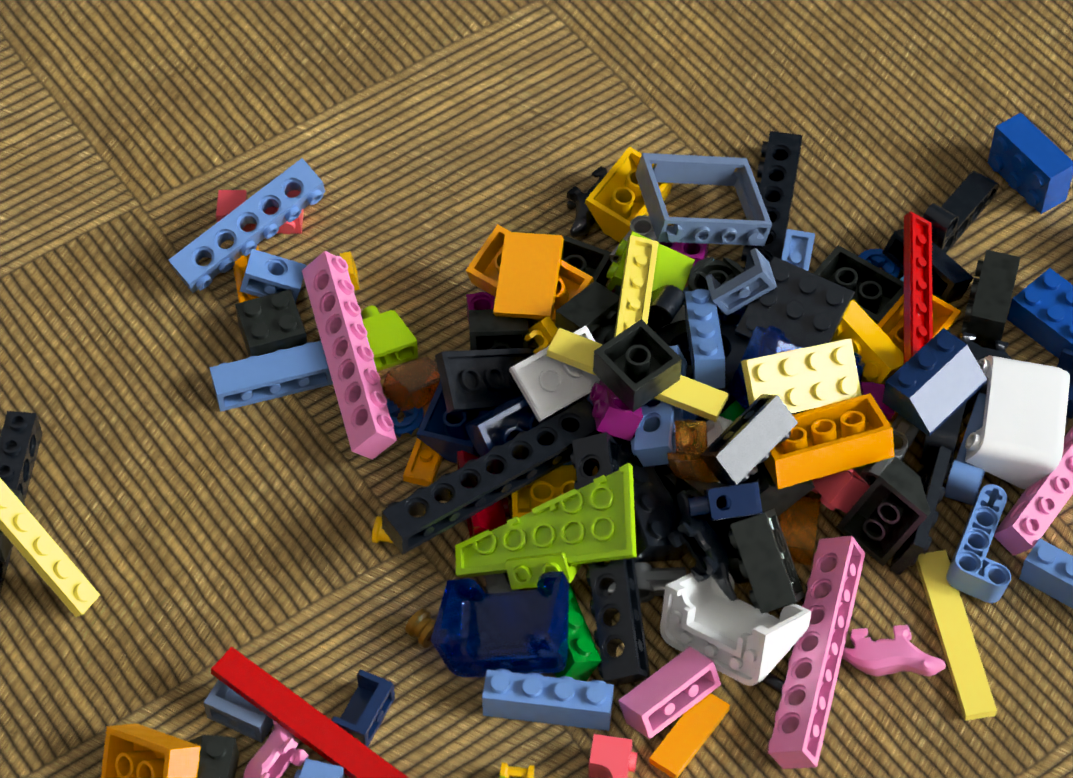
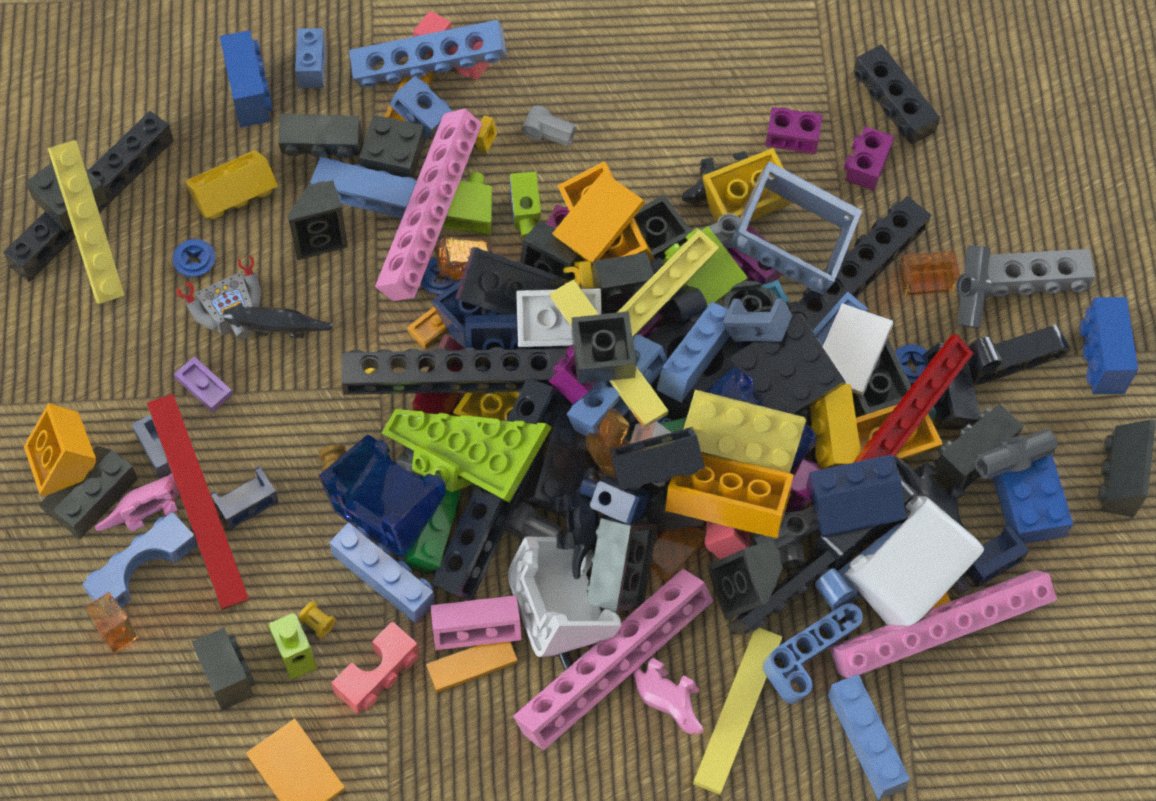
camera: 30 degrees right, 10 degrees up
(82, 336) = (246, 78): none -> blue brick
(130, 289) = (310, 58): none -> medium blue brick
(135, 438) = (231, 184): none -> yellow slope
(138, 517) = (194, 248): none -> blue gear
(197, 346) = (320, 135): none -> pearl dark grey slope
(213, 545) = (211, 301): none -> light grey torso
(243, 631) = (203, 384): none -> medium lavender plate
(259, 418) = (317, 221): none -> pearl dark grey slope
(274, 534) = (273, 320): none -> black animal
(395, 238) = (542, 124): none -> light grey piece
(435, 308) = (525, 201): none -> lime torso
(627, 127) = (792, 135): none -> magenta brick
(693, 57) = (907, 99): none -> black brick
(710, 120) = (867, 157): none -> magenta brick
(831, 258) = (856, 344): none -> white tile
(834, 185) = (929, 272): none -> clear orange panel
(878, 160) = (973, 286): none -> dark grey piece
(922, 139) = (1048, 264): none -> light grey brick
(1032, 282) = (1016, 453): none -> dark grey piece

